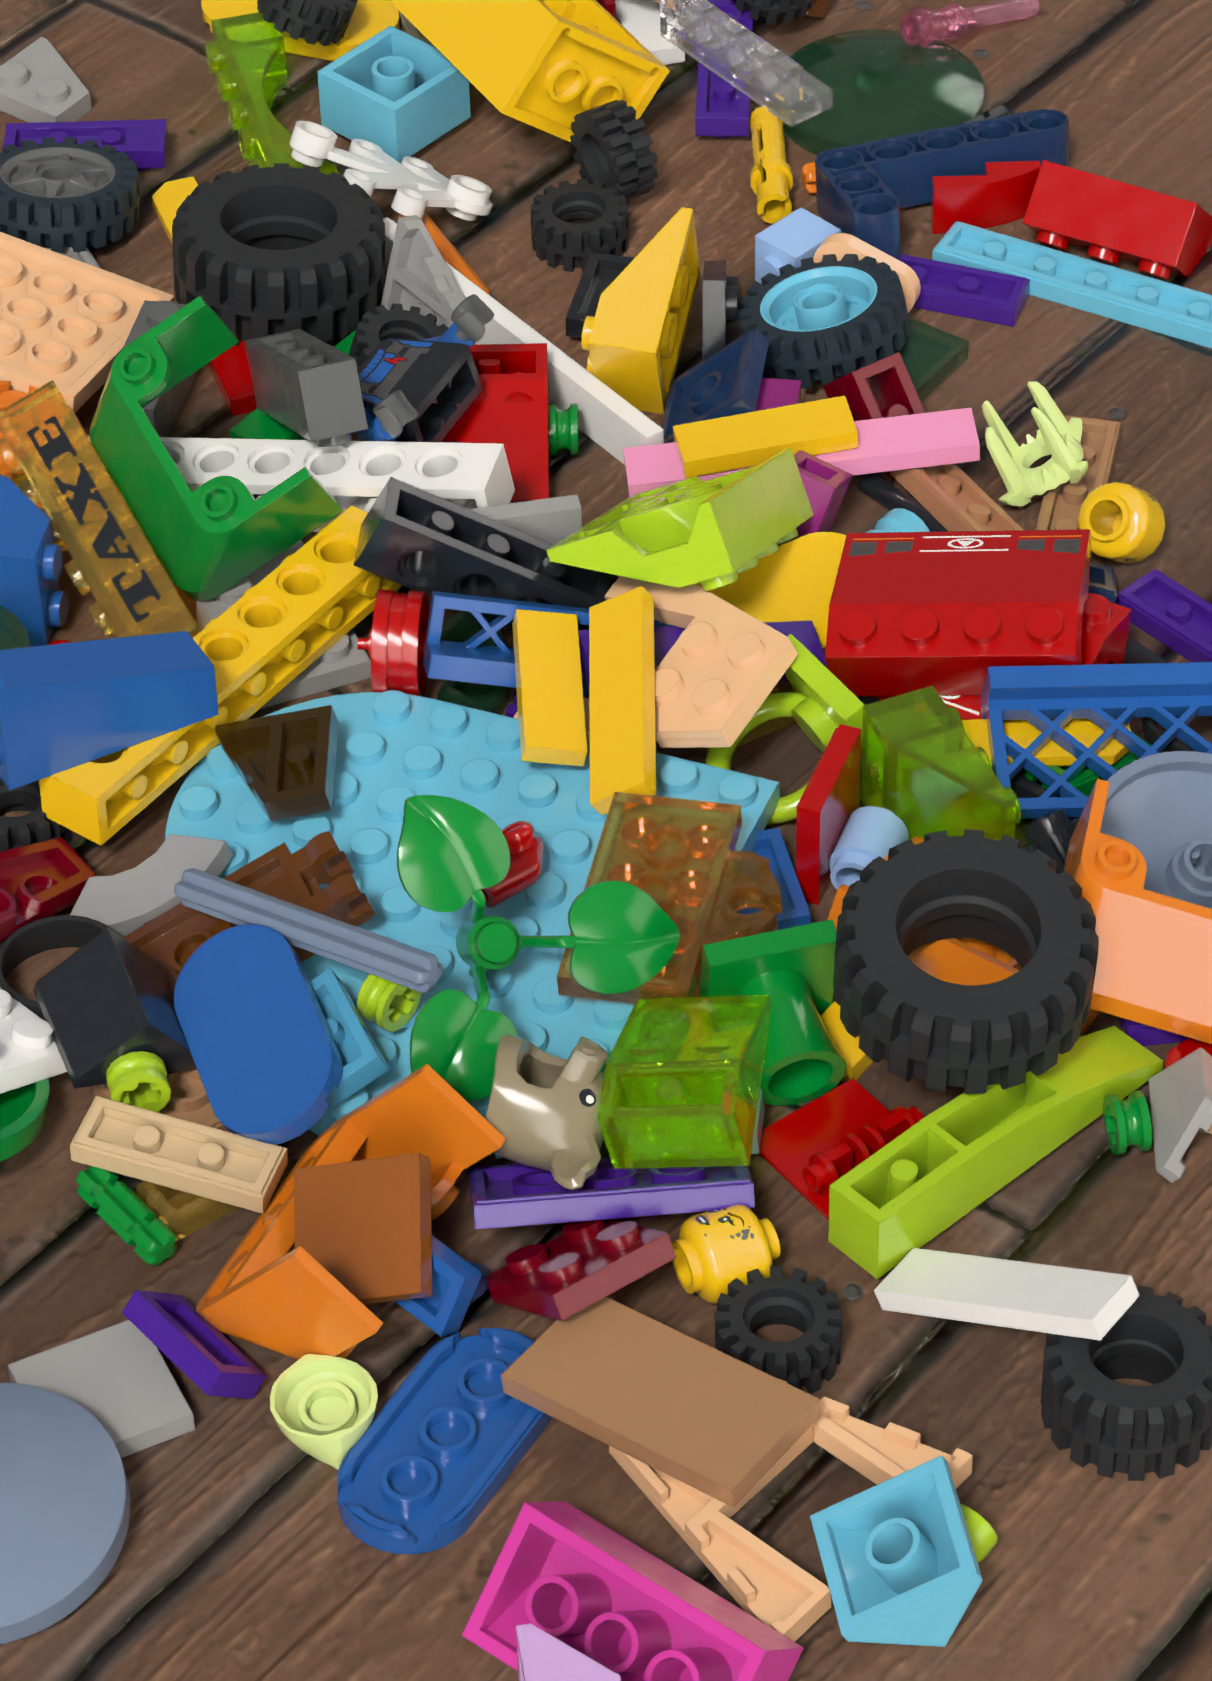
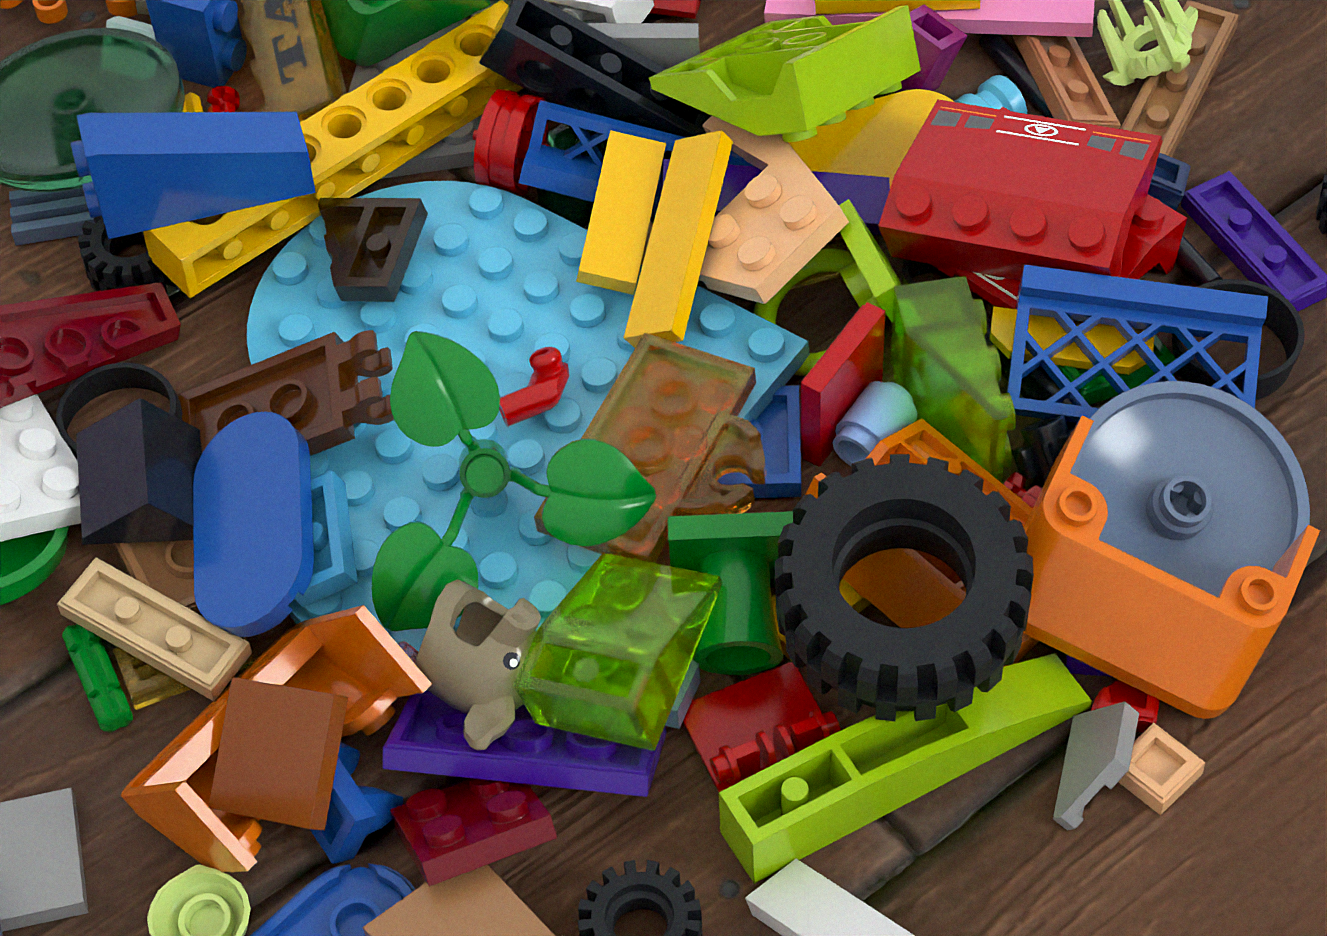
camera: 15 degrees right, 10 degrees up
(139, 1081) = (138, 550): lime bush -> none
(148, 890) = (207, 353): light grey tile -> none
(194, 1344) = (106, 830): dark purple tile -> none
(311, 930) = (324, 431): sand blue axle -> none
(387, 1003) = (381, 506): lime bush -> none
(723, 1247) = (613, 830): yellow head -> none
(1123, 522) = (1207, 121): yellow head -> none
(1127, 1122) = (1037, 763): green bush -> none

